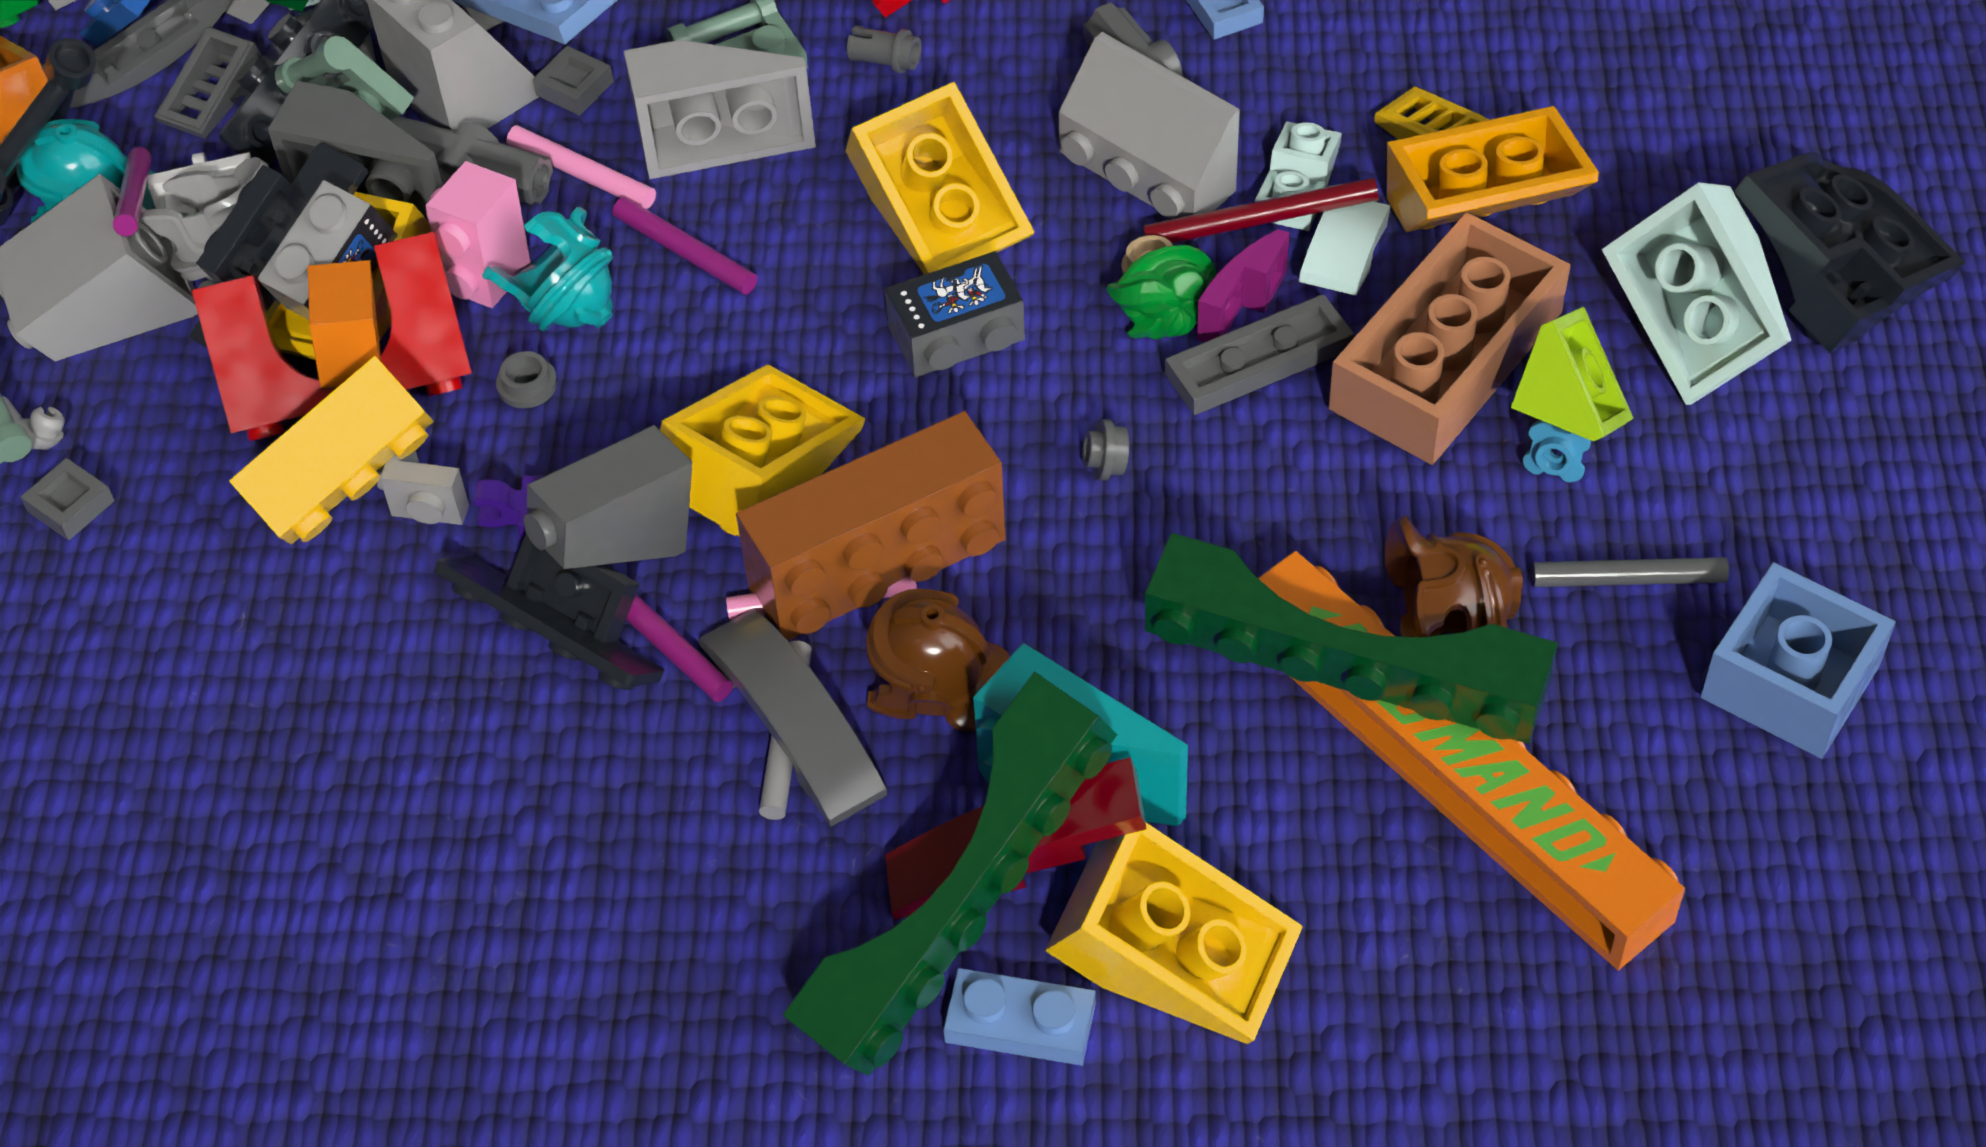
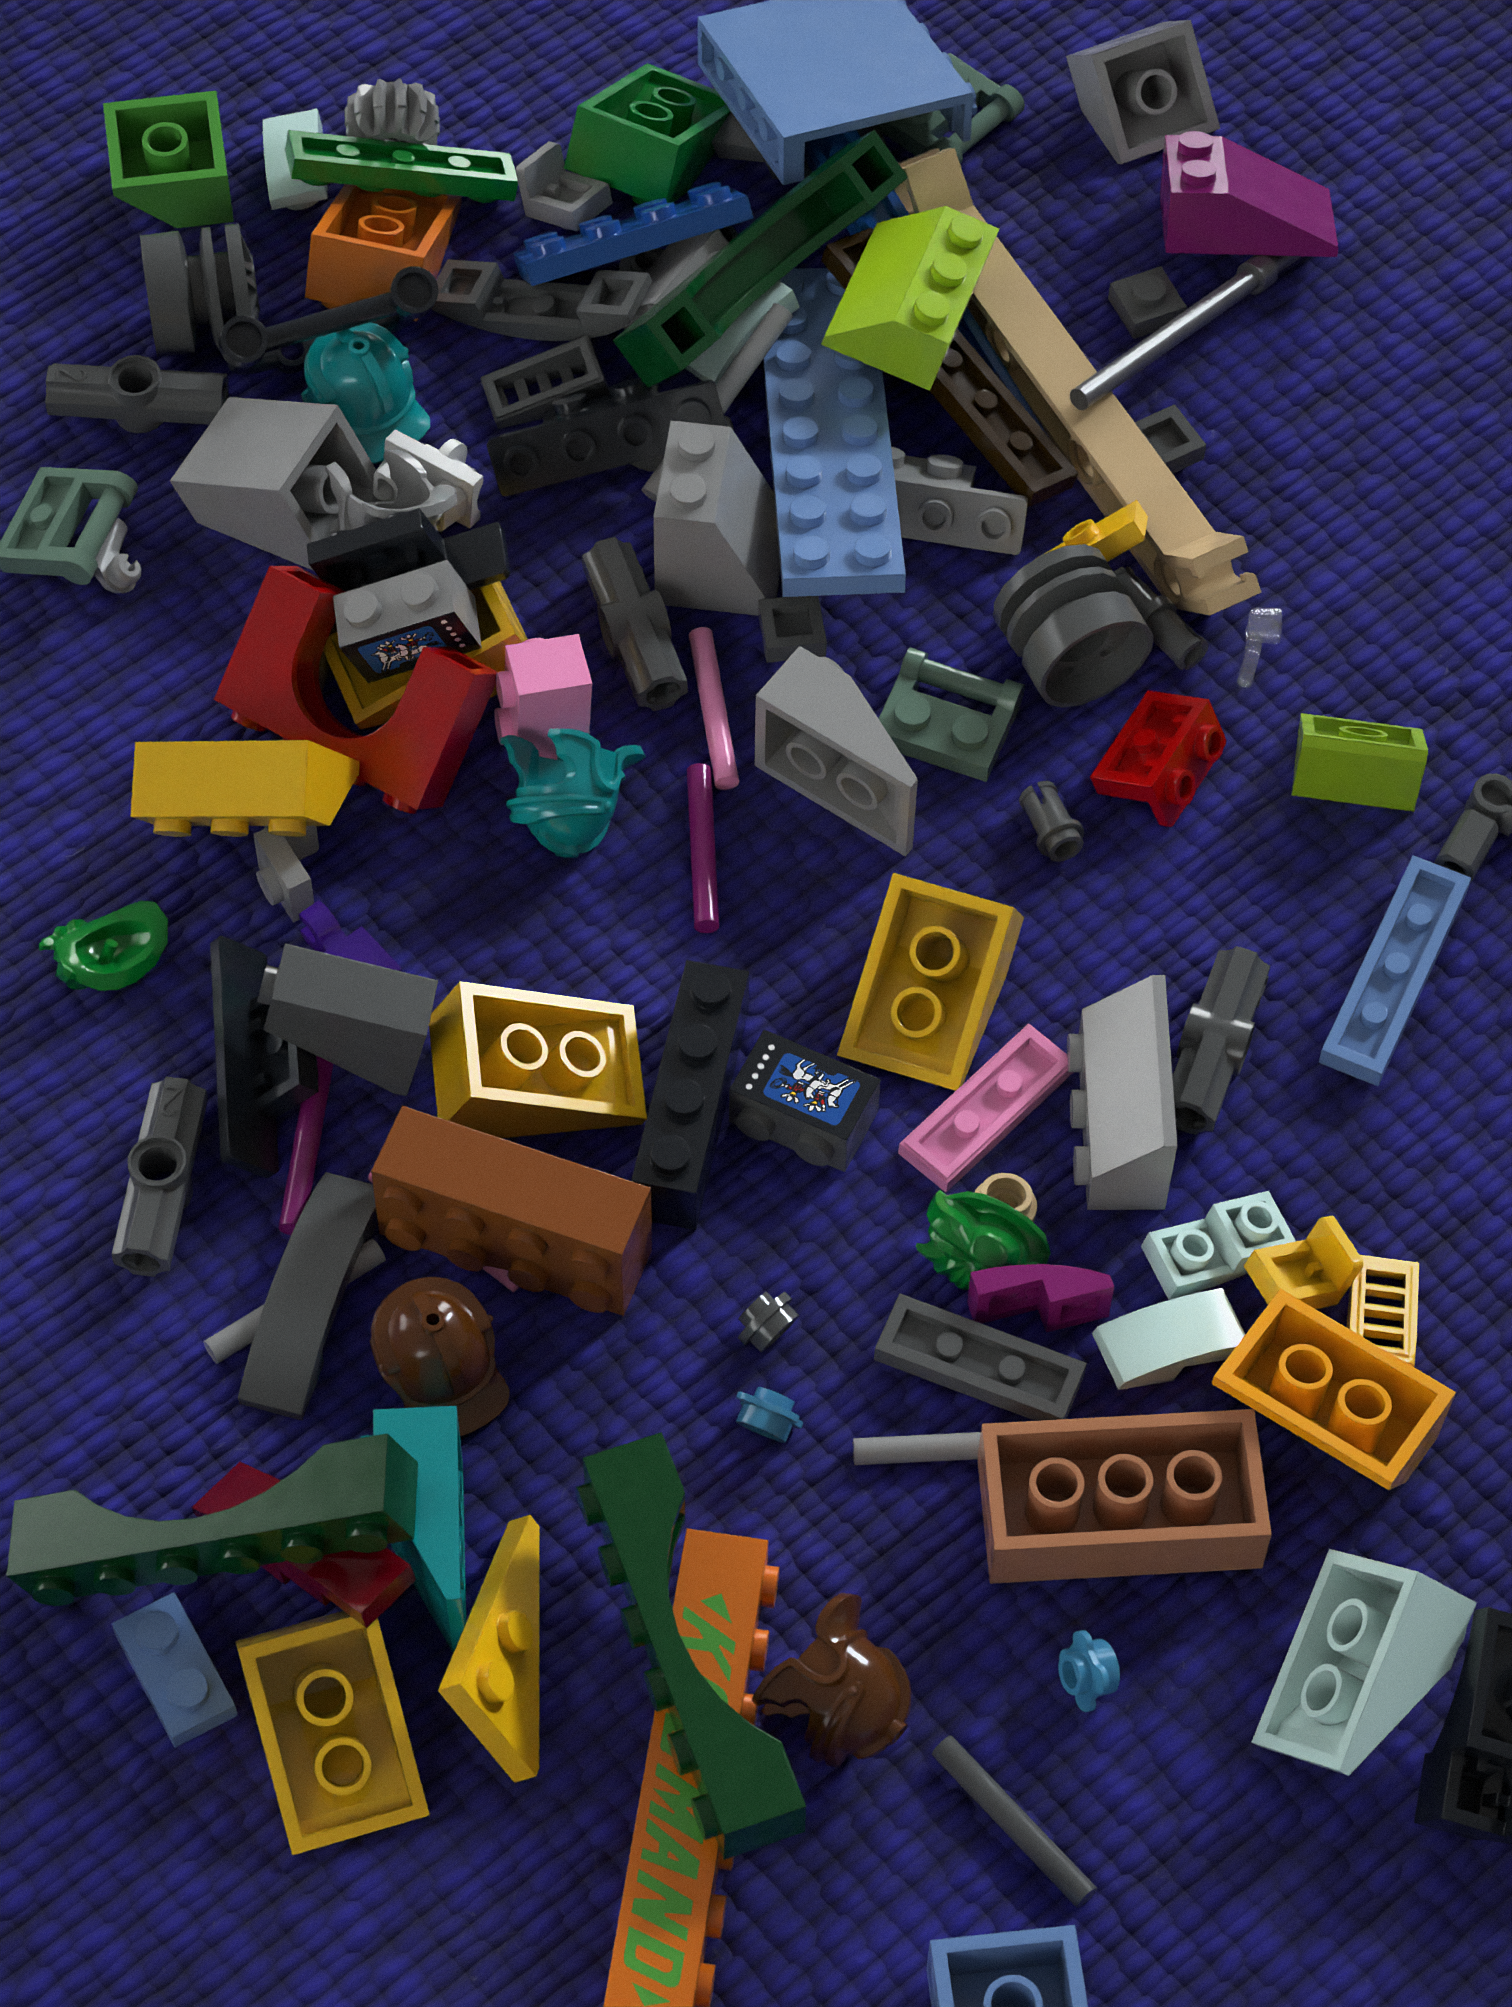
camera: 45 degrees right, 5 degrees up
(67, 499) = (70, 645): dark grey plate -> none
(132, 192) = (353, 438): magenta bar -> none
(342, 319) = (349, 686): orange slope -> none
(358, 75) = (600, 495): sand green plate -> none
(359, 643) = (109, 949): none -> green hat
(395, 161) = (541, 536): dark grey slope -> none
(526, 380) = (457, 837): dark grey plate -> none
(613, 762) = (155, 1208): none -> dark grey piece
(871, 356) = (692, 1091): none -> black brick
(1061, 229) = (986, 1108): none -> bright pink tile
(1181, 497) = (767, 1414): none -> dark azure plate
(1240, 793) = (496, 1660): none -> yellow wing
(1265, 211) = (1136, 1249): dark red bar -> none
(1290, 433) = (916, 1448): none -> light grey bar
(1367, 127) = (1308, 1269): none -> yellow bracket
(1572, 380) = (1151, 1630): lime slope -> none

